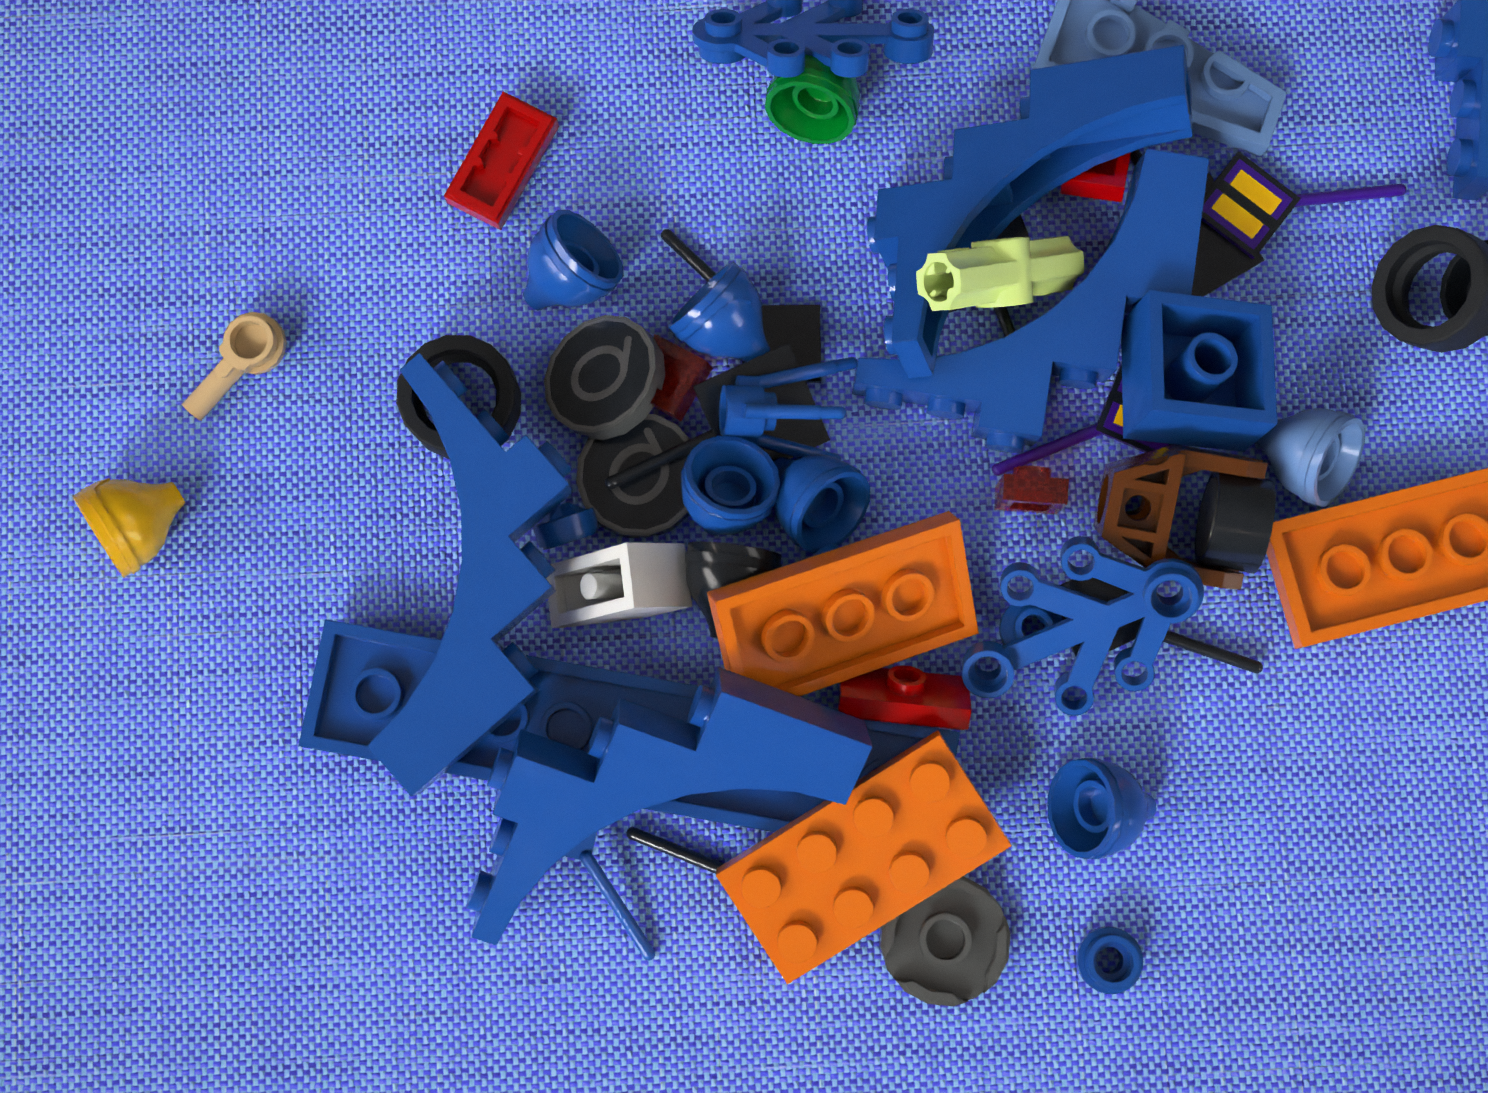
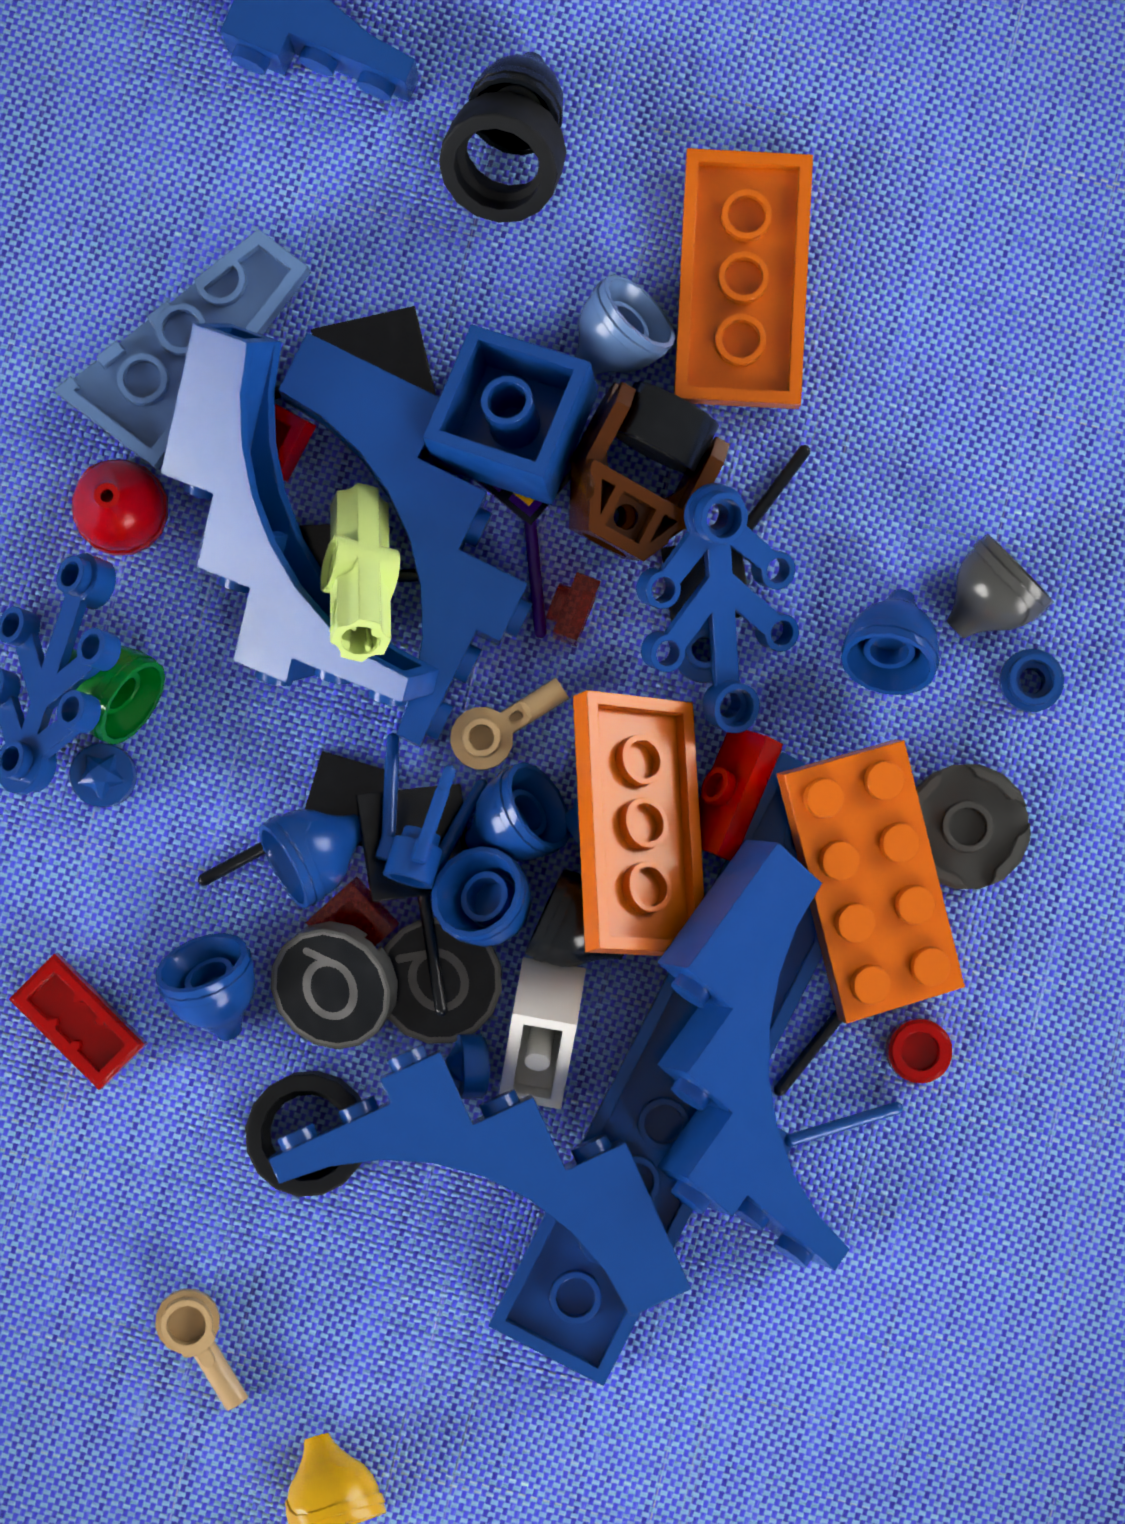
camera: 75 degrees left, 5 degrees up
(711, 958) = (919, 1050): none -> red tile
(734, 114) = (103, 775): none -> blue tile
(882, 448) = (485, 736): none -> tan plate
(985, 53) = (120, 507): none -> red helmet
(1185, 894) = (994, 592): none -> dark grey helmet
(1251, 204) = (356, 300): piece -> none

